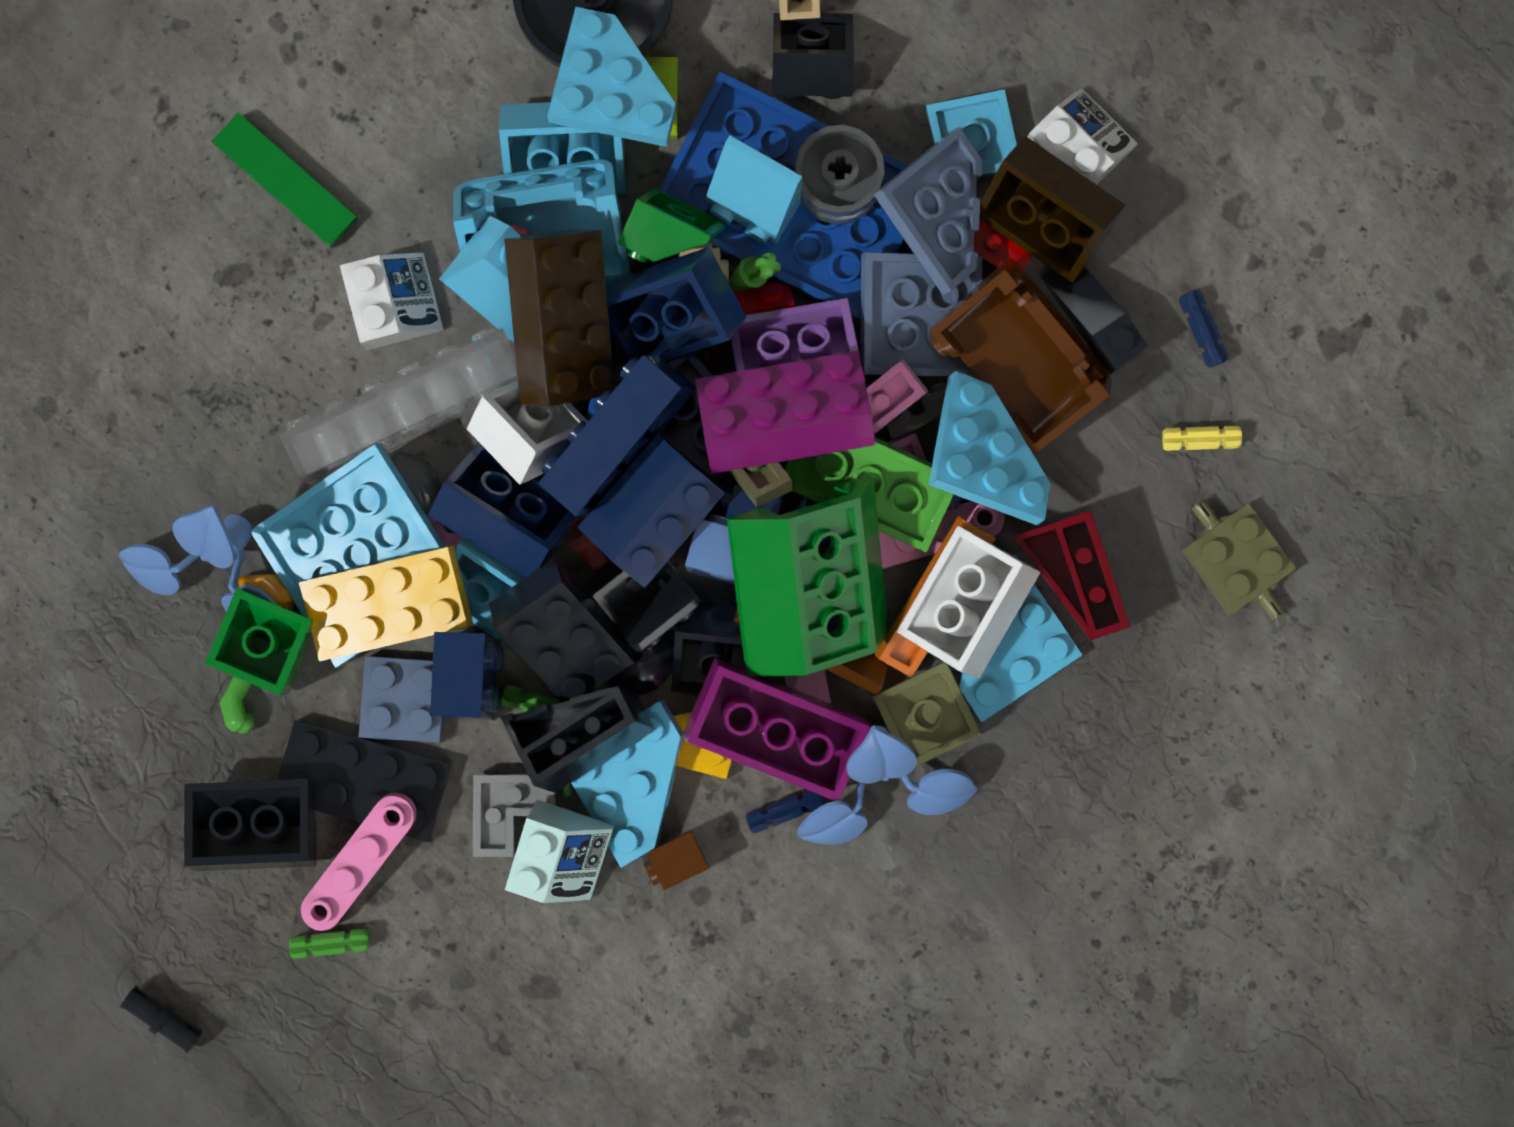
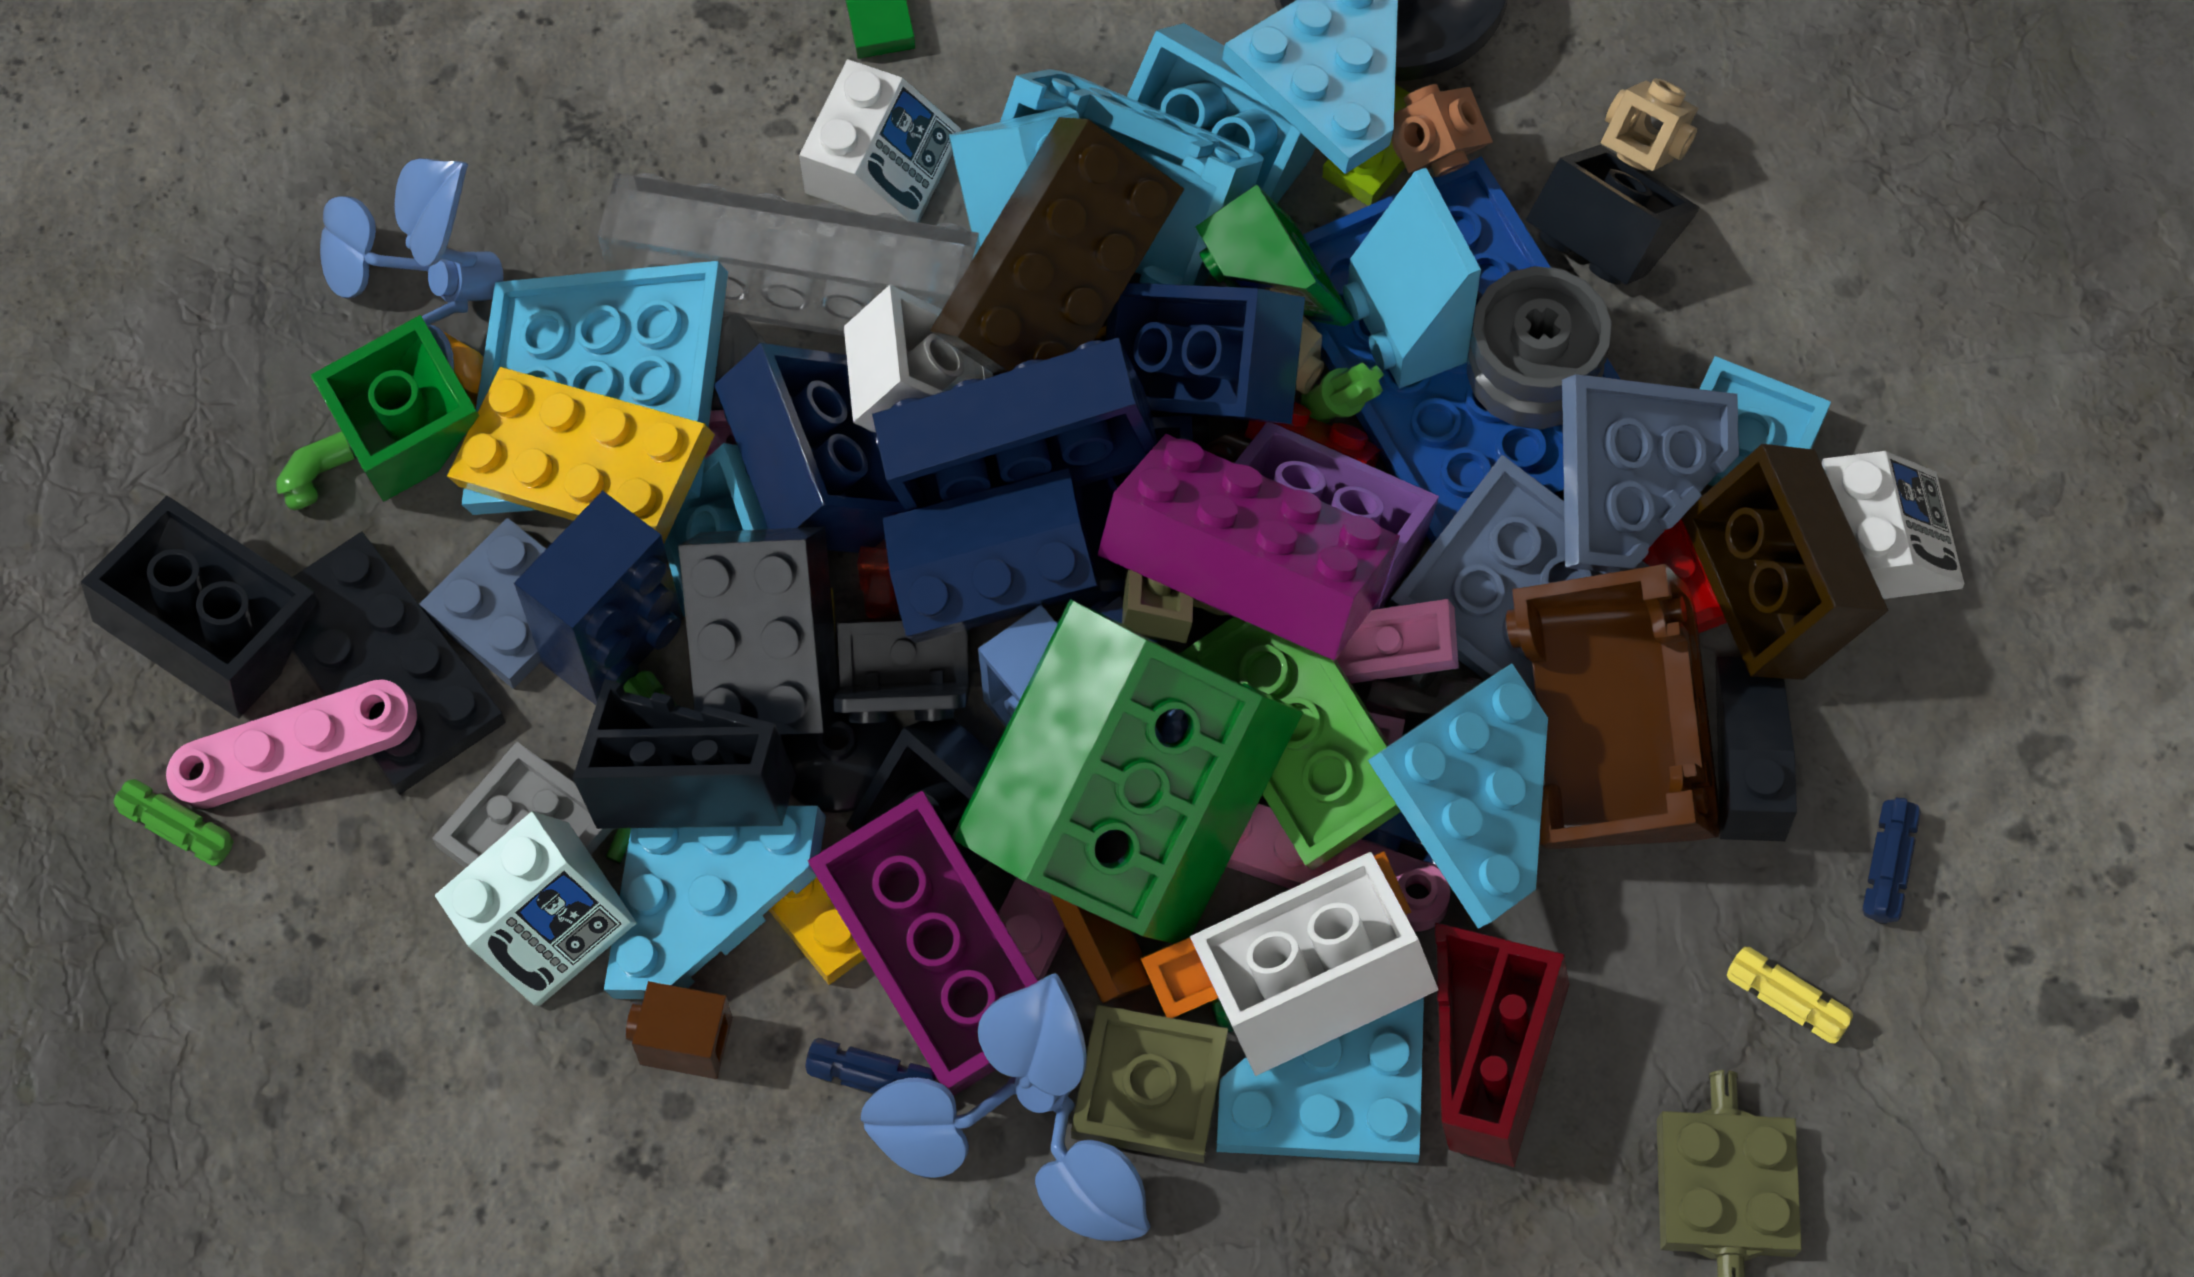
camera: 35 degrees right, 20 degrees down
(691, 76) = (1439, 129): none -> nougat brick

